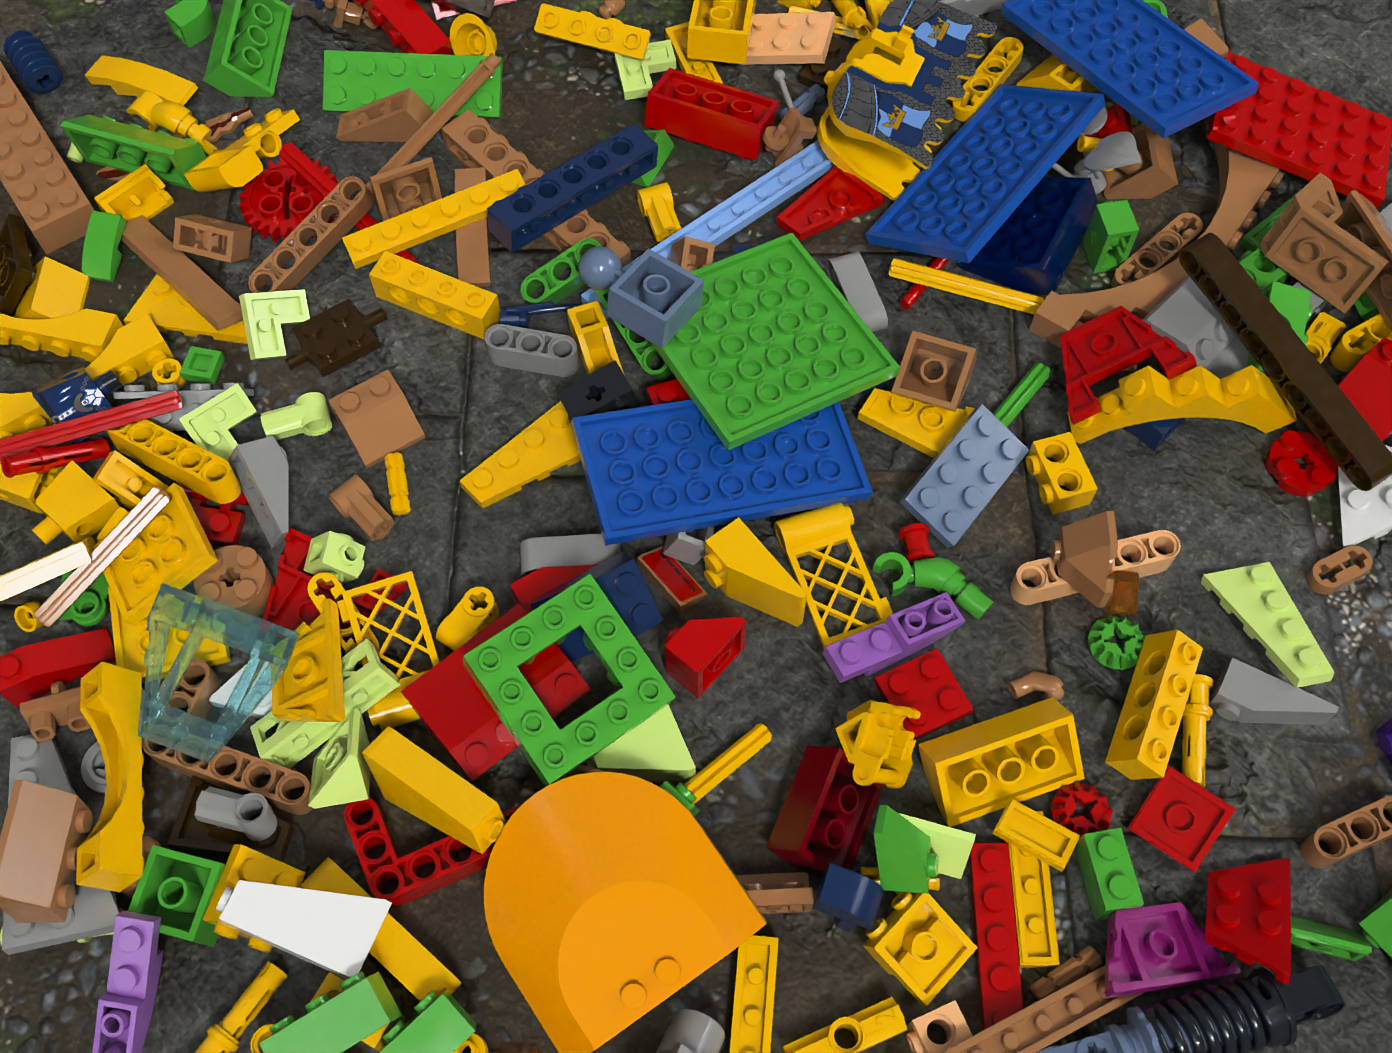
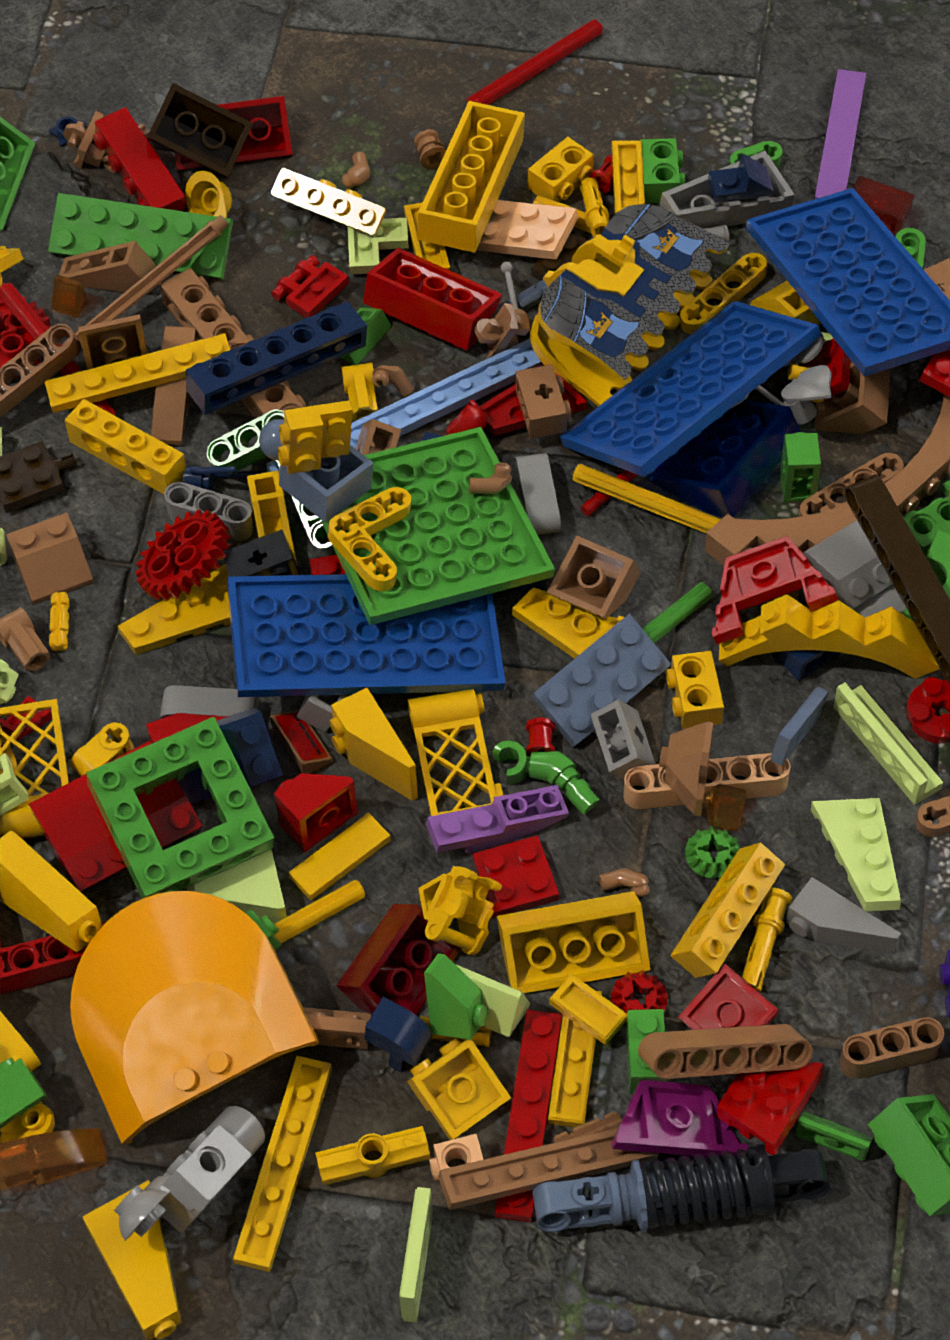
camera: 10 degrees right, 5 degrees down
(350, 151) = (68, 296): none -> clear orange slope
(515, 399) = (182, 555): none -> red gear
(596, 118) = (316, 291): none -> red plate
(643, 257) = (314, 434): none -> yellow plate
(690, 192) = (392, 375): none -> medium nougat arm
(701, 359) = (361, 531): none -> yellow beam
(736, 699) = (339, 856): none -> yellow tile
(773, 226) = (469, 418): none -> red hair
(820, 288) = (494, 483): none -> medium nougat arm
(844, 200) = (542, 401): none -> medium nougat brick
(1003, 535) = (621, 738): none -> light grey brick
(1178, 499) = (799, 725): none -> sand blue tile
(1197, 867) = (724, 1051): none -> medium nougat beam
(1260, 504) = (886, 743): none -> yellowish green fence

